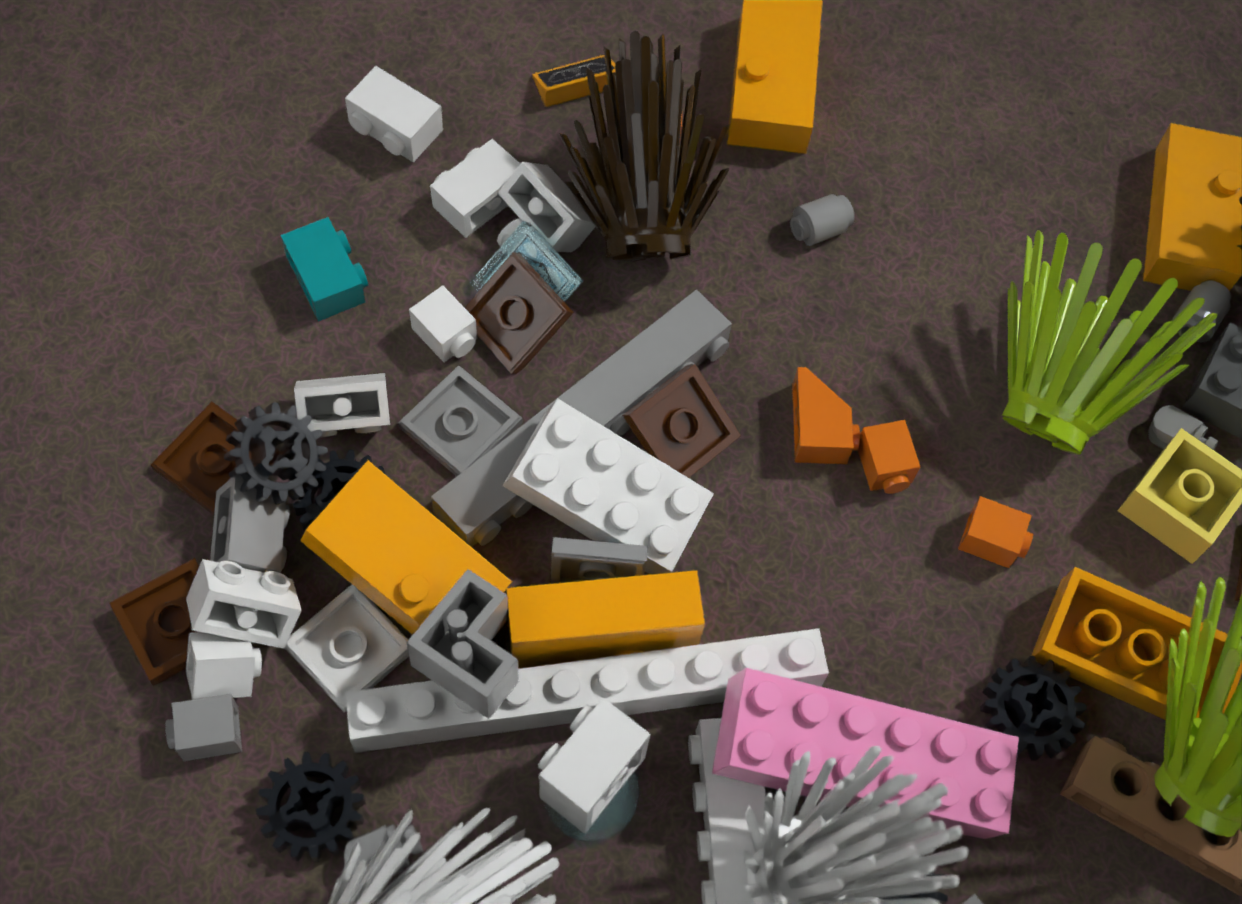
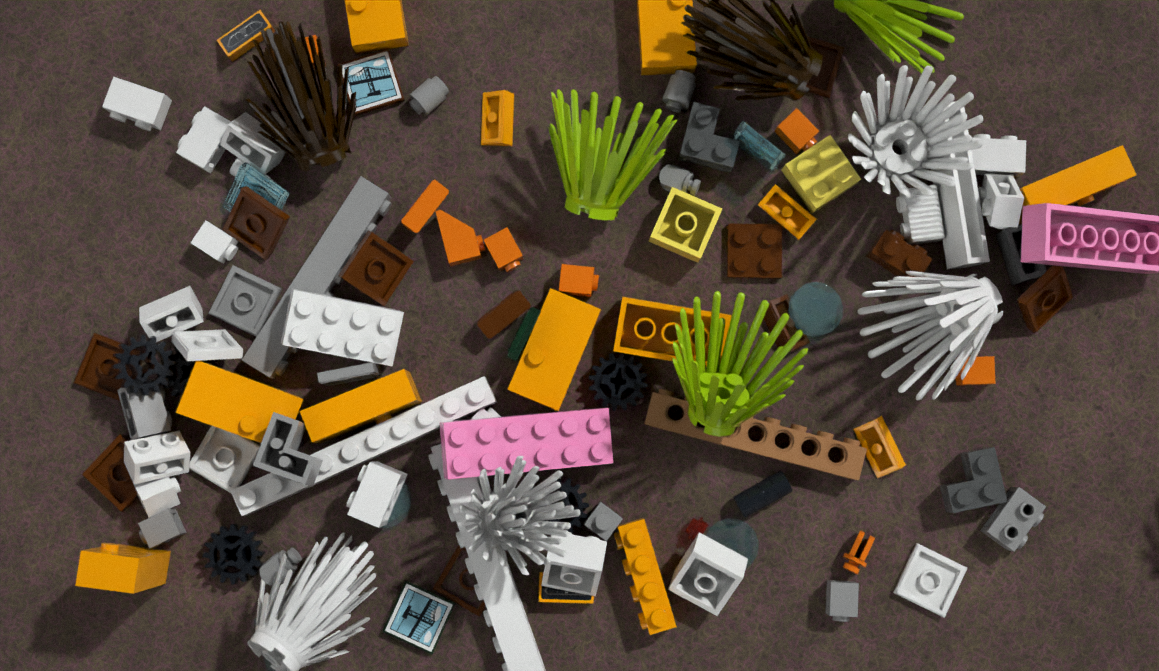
camera: 10 degrees left, 20 degrees up
(123, 754) = (122, 568): none -> light orange brick
(324, 268) = (129, 225): teal brick -> none
(386, 454) = (206, 345): none -> white tile
(750, 188) = (374, 81): none -> tile
(779, 359) = (425, 206): none -> orange slope
(866, 547) = (503, 314): none -> reddish brown slope
(895, 582) = (522, 334): none -> clear green tile
(915, 278) = (497, 118): none -> light orange slope
(938, 625) = (554, 349): none -> light orange brick

